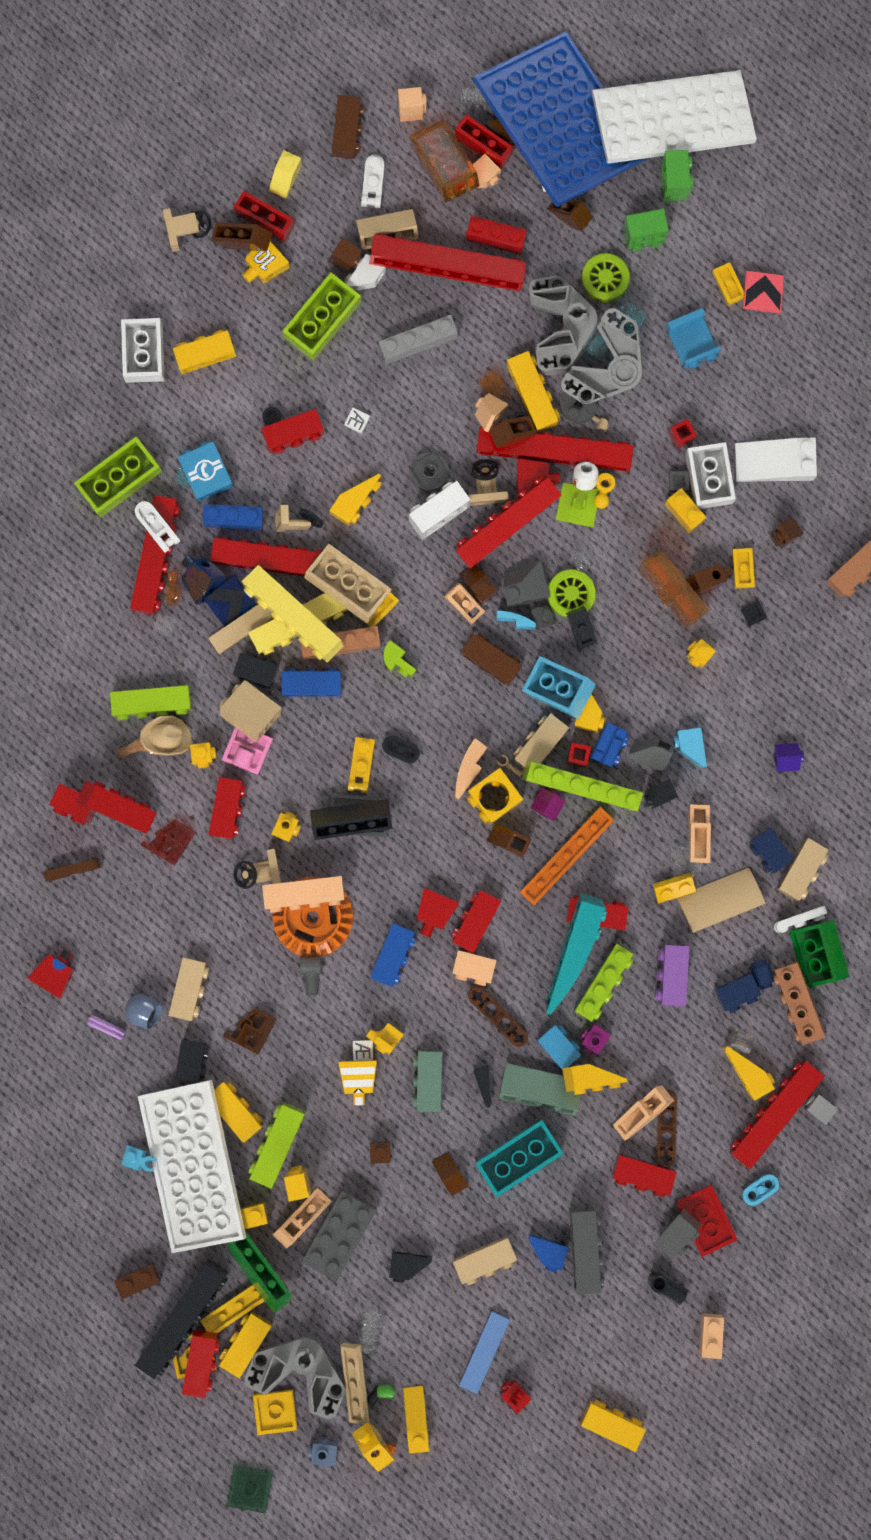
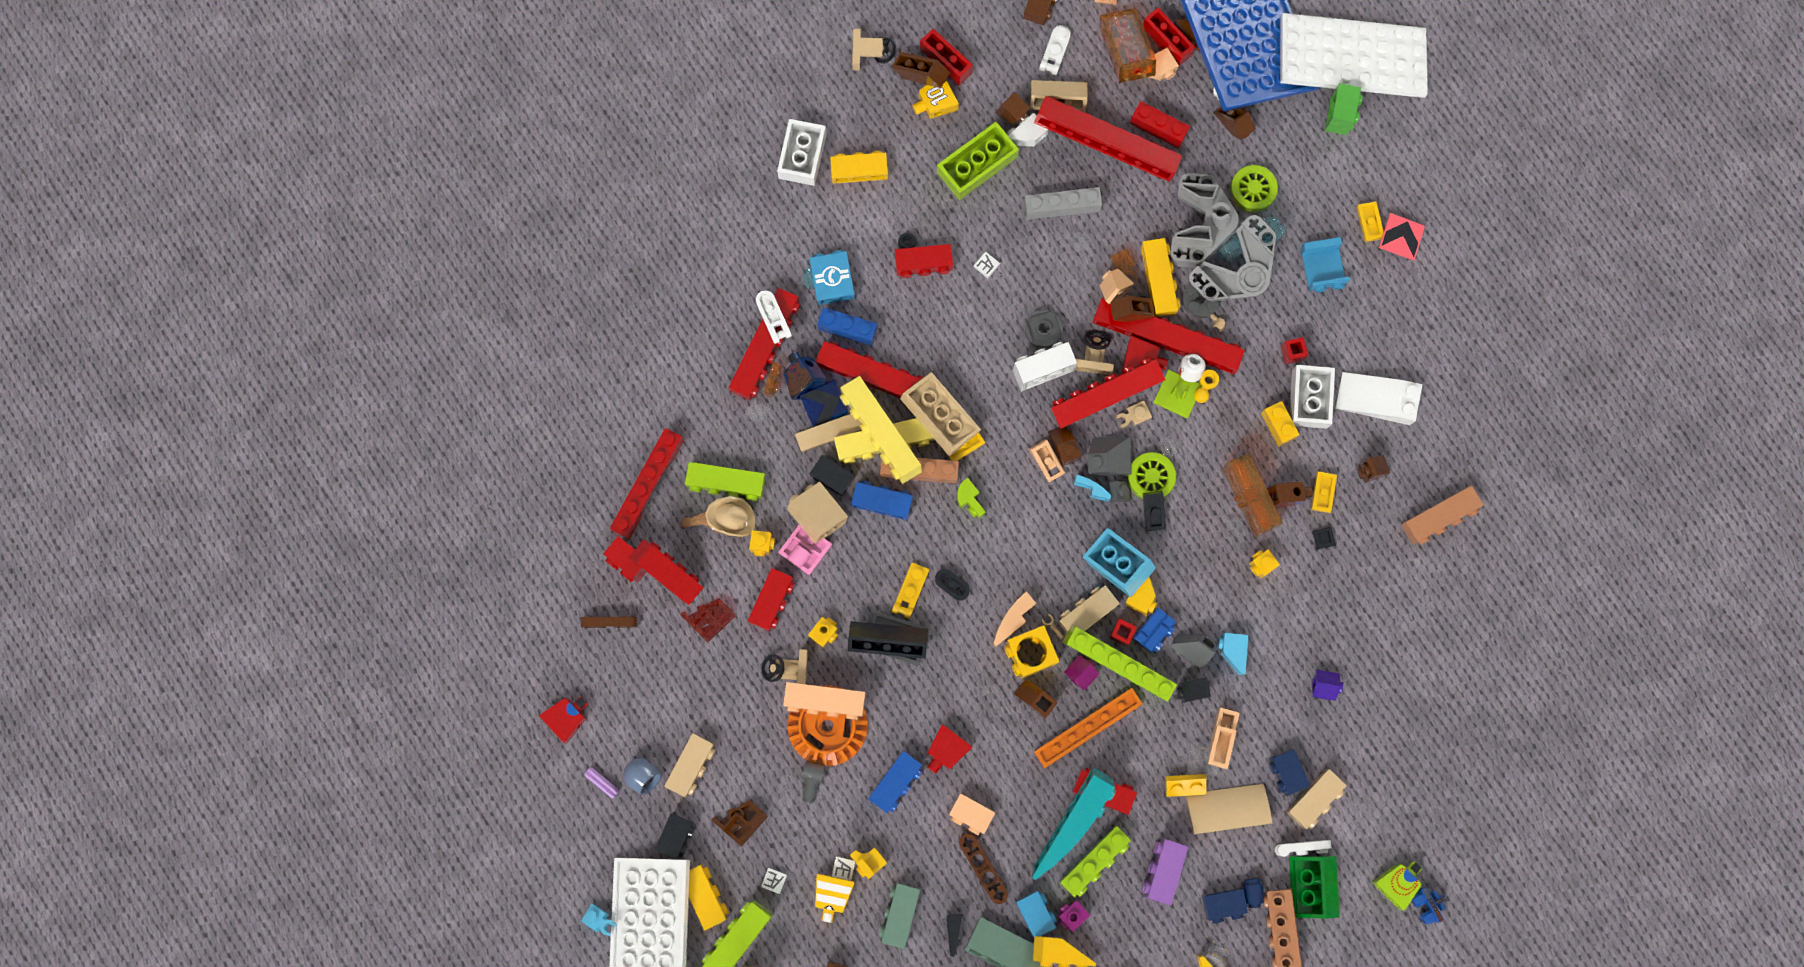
camera: 20 degrees right, 5 degrees down
(74, 718) = (639, 495): none -> red arch
(118, 477) = (748, 263): lime brick -> none
(283, 523) = (893, 343): tan piece -> none
(285, 174) = (975, 23): light yellow slope -> none
(298, 1079) = (774, 880): none -> white tile
(348, 503) = (958, 340): yellow slope -> none
(475, 921) = (984, 769): red brick -> none
(491, 659) = (1060, 519): reddish brown brick -> none
(541, 535) = (1137, 414): none -> tan plate
(645, 230) = (1302, 152): bright green brick -> none
(678, 480) = (1280, 393): dark grey plate -> none

